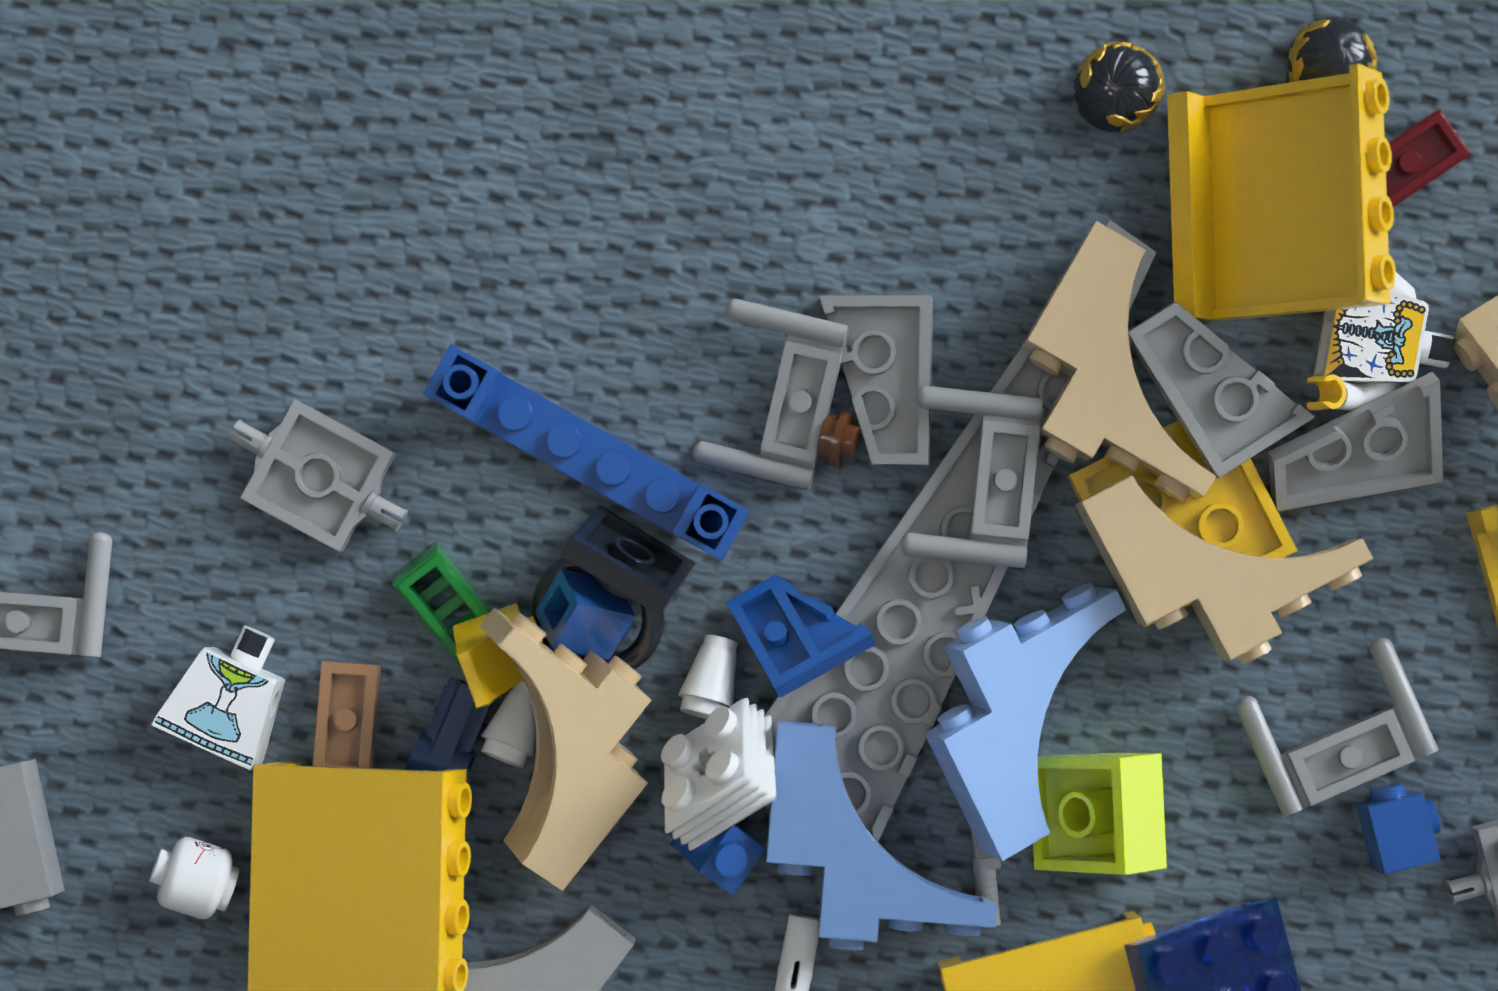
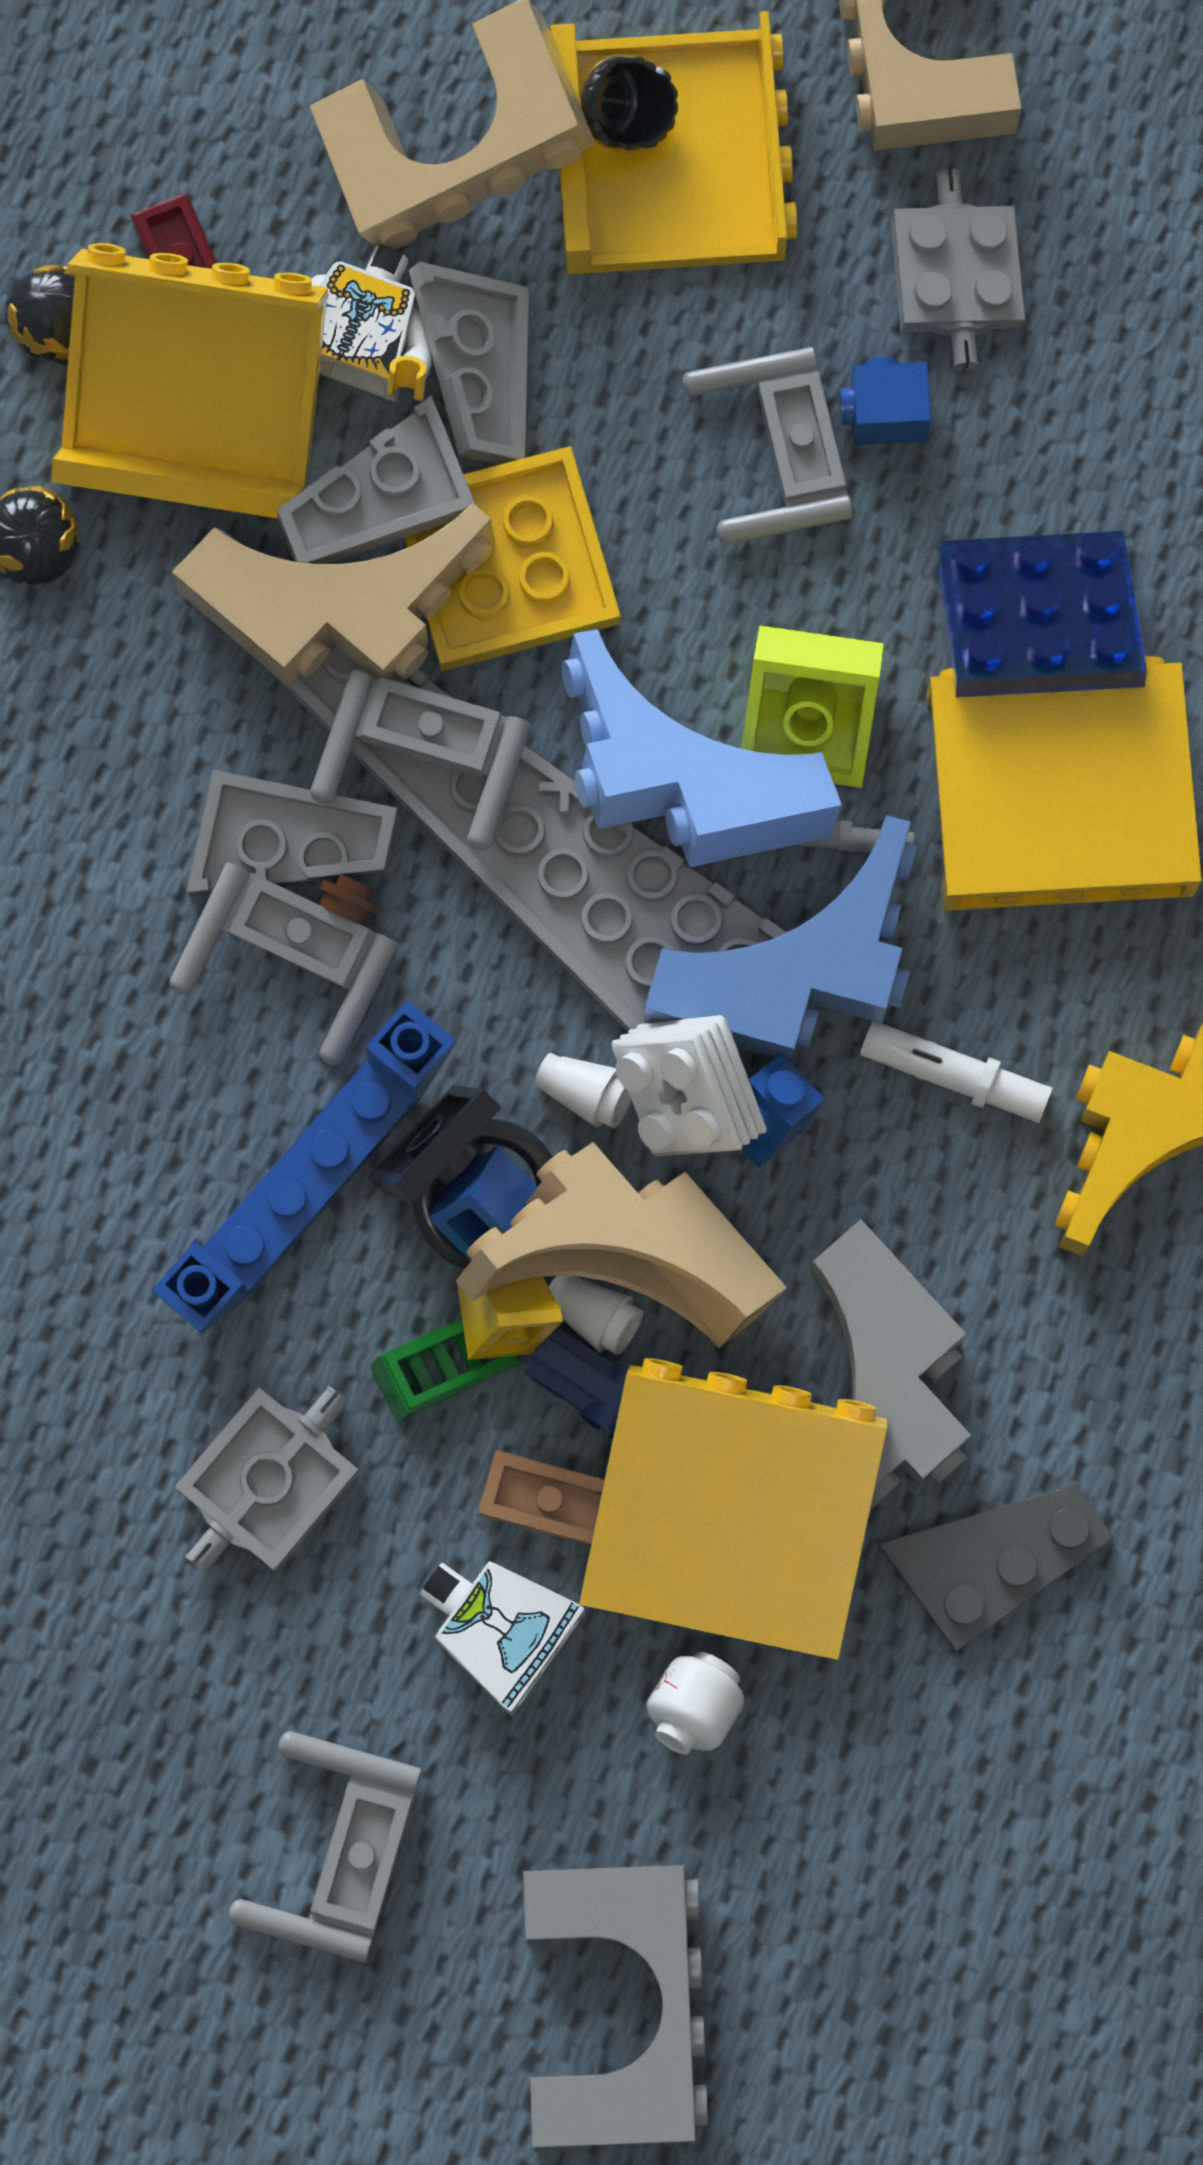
camera: 80 degrees left, 10 degrees down
(795, 634) = (553, 984): blue wing -> none
(1232, 593) = (560, 574): tan arch -> none

